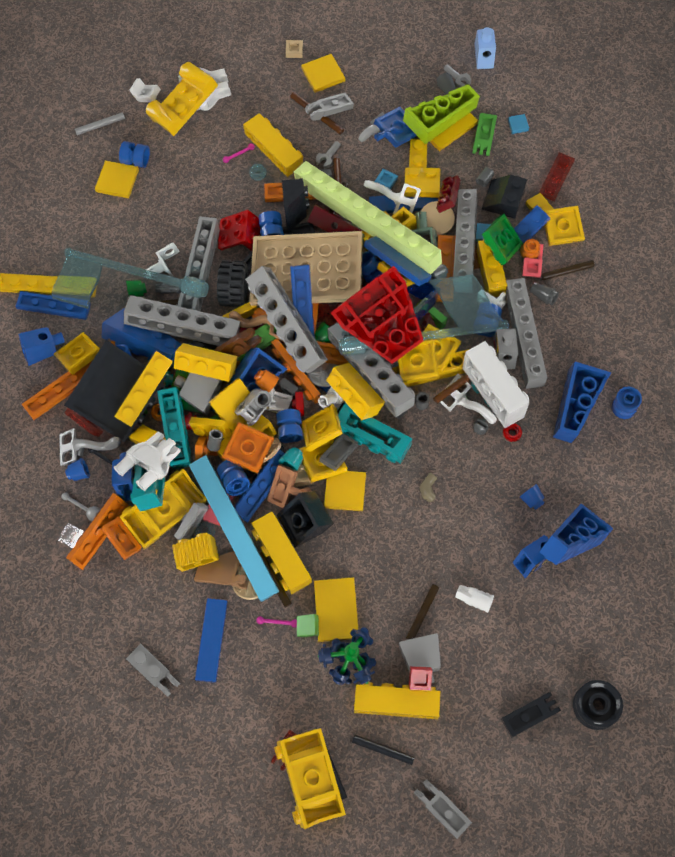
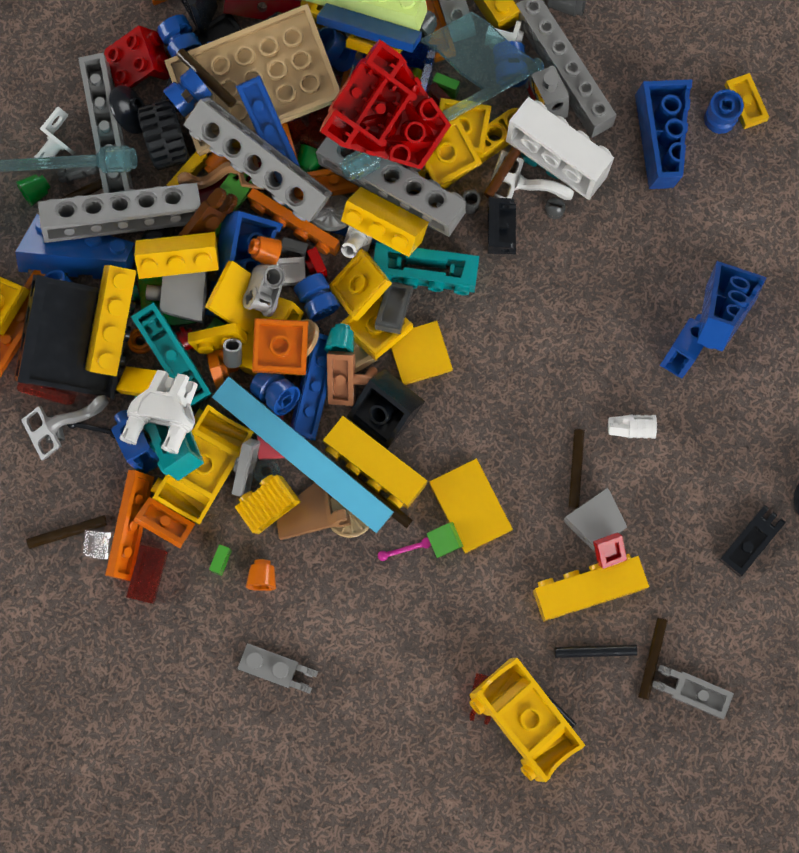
camera: 25 degrees left, 10 degrees up
(55, 520) = (66, 532): none -> dark brown bar
(77, 470) = (67, 458): blue hat -> none
(91, 512) = (110, 505): light grey hinge -> none
(94, 569) = (147, 574): none -> clear red plate
(147, 578) = (220, 560): none -> bright green tile
(170, 601) = (261, 576): none -> orange hat
(211, 640) = (333, 604): blue tile -> none
(214, 255) = (124, 107): none -> black dish
(263, 256) = (194, 85): none -> blue wheel
(275, 256) = (209, 80): none -> dark brown bar
(349, 653) = (518, 555): dark blue plant -> none
(422, 772) = (652, 659): none -> dark brown bar
(426, 488) = (520, 313): dark tan arm -> none
(437, 425) = (501, 226): none -> black hinge
(515, 427) = (598, 209): red plate -> none
(533, 497) = (655, 275): blue hat -> none
(648, 408) = (754, 109): none -> yellow plate

